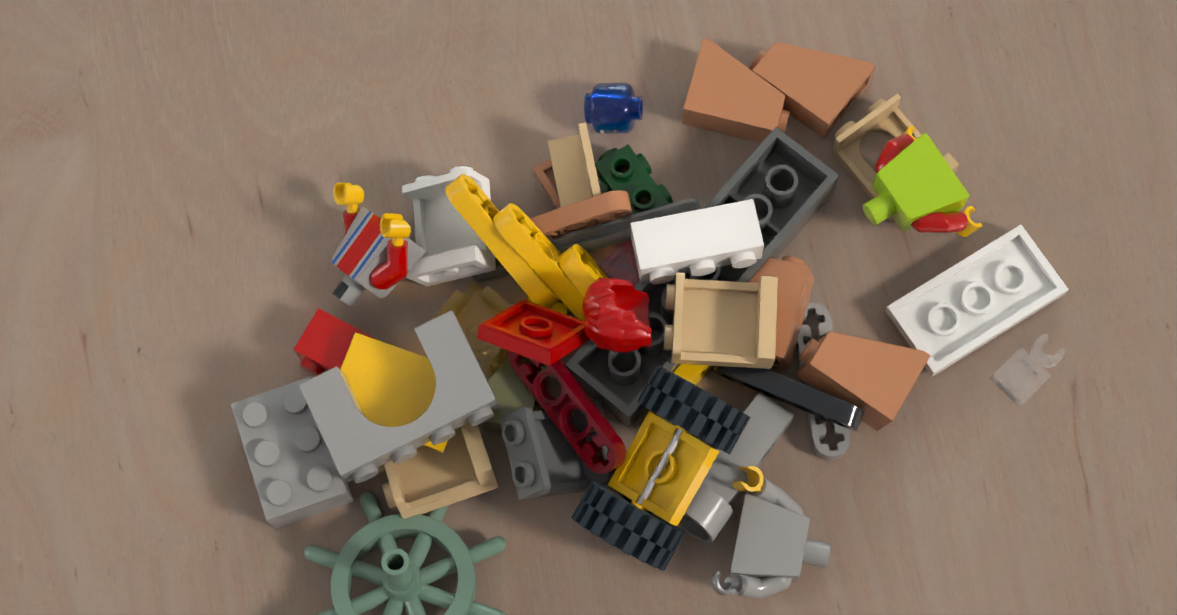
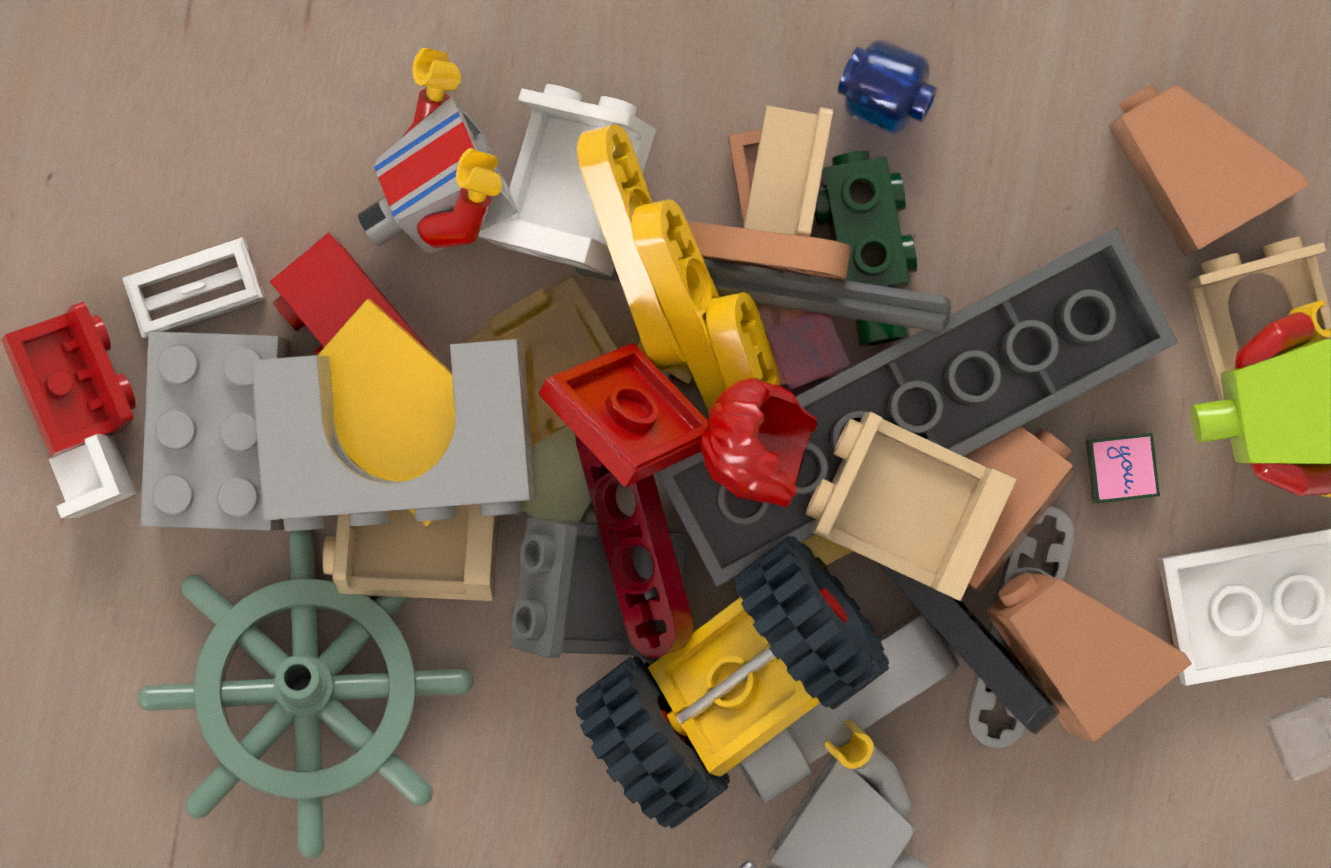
camera: 20 degrees right, 15 degrees up
(193, 457) = (70, 378): none -> red bracket
(225, 512) = (91, 477): none -> white panel
(240, 366) = (245, 271): none -> white tile
(697, 241) = (922, 370): white brick -> none
(732, 97) = (1074, 143): nougat slope -> none
(841, 267) = (1122, 468): none -> bright pink tile

